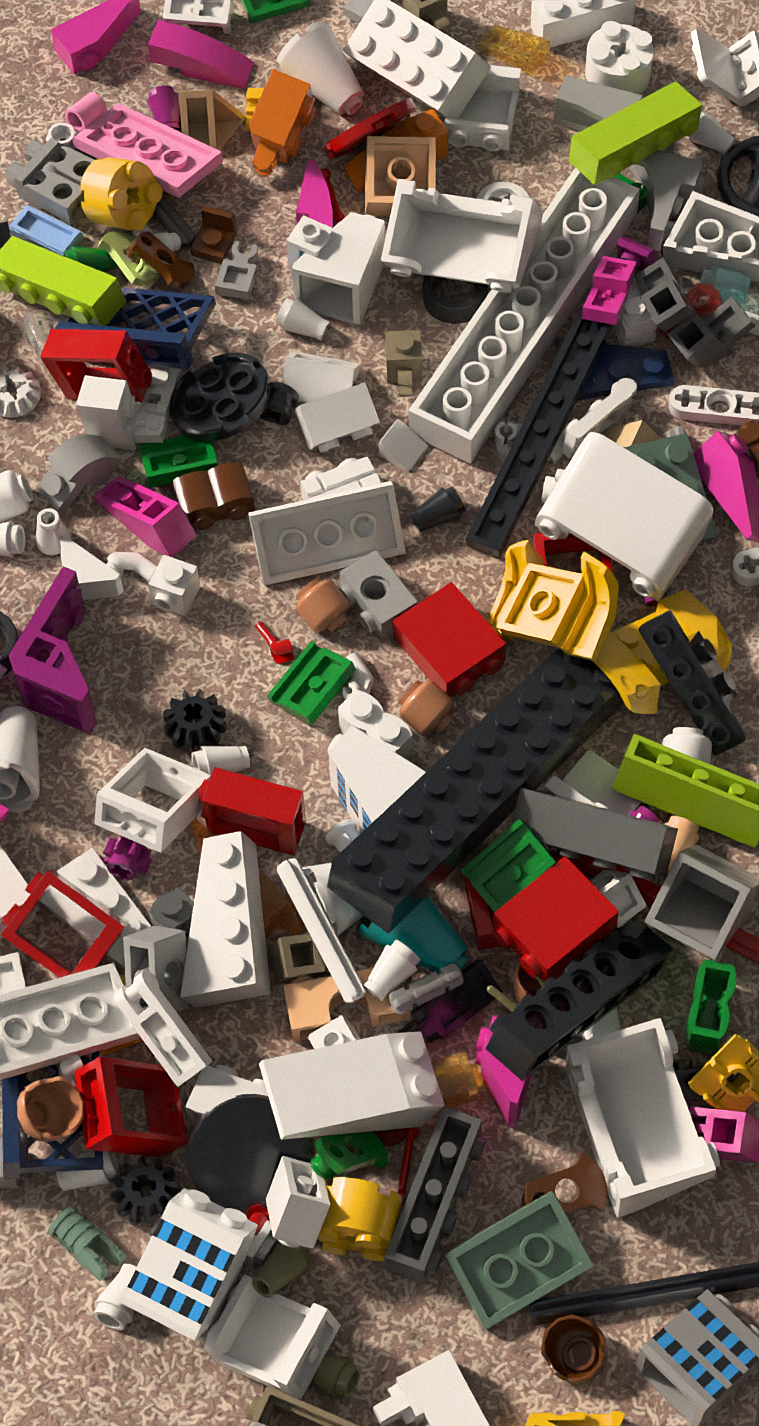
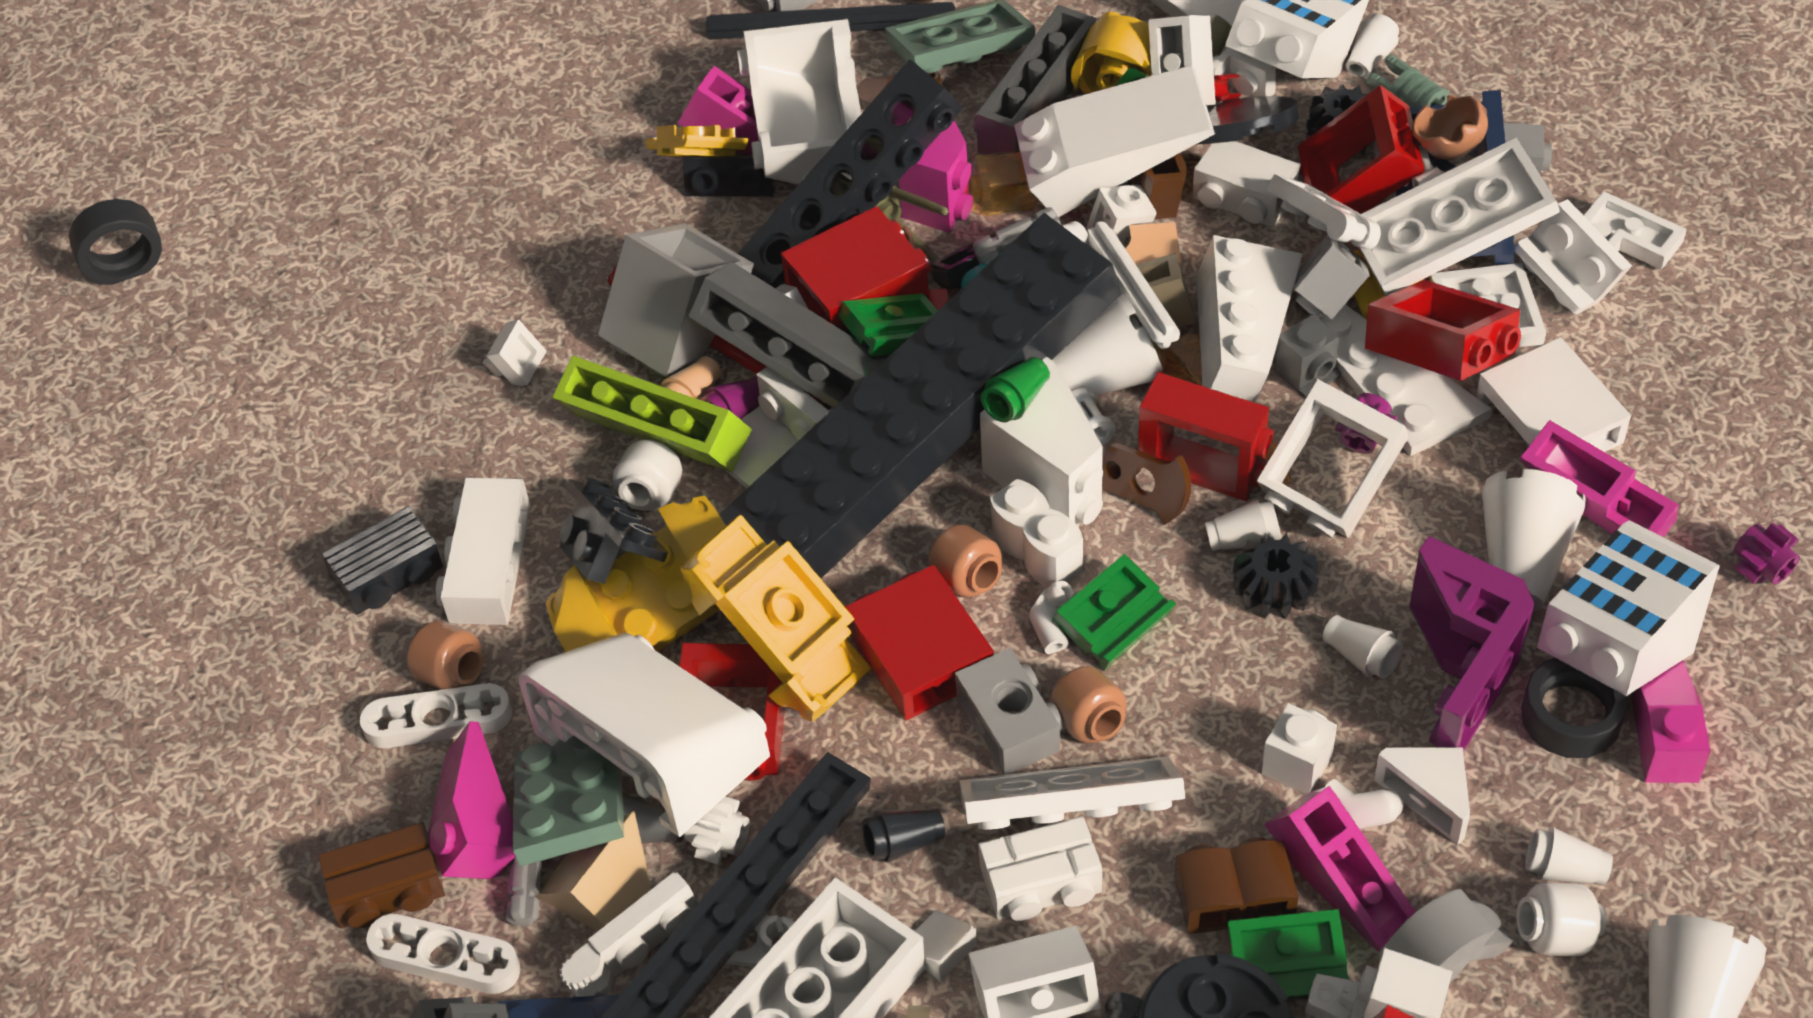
camera: 170 degrees left, 10 degrees down
(50, 532) = (1484, 849): white cone -> none
(127, 674) = (1365, 646): none -> white cone
(281, 650) = (1153, 664): red hand -> none
(314, 796) = (1171, 479): none -> reddish brown piece
(400, 774) = (1013, 391): none -> green cone
(710, 1007) = (706, 202): green brick -> none

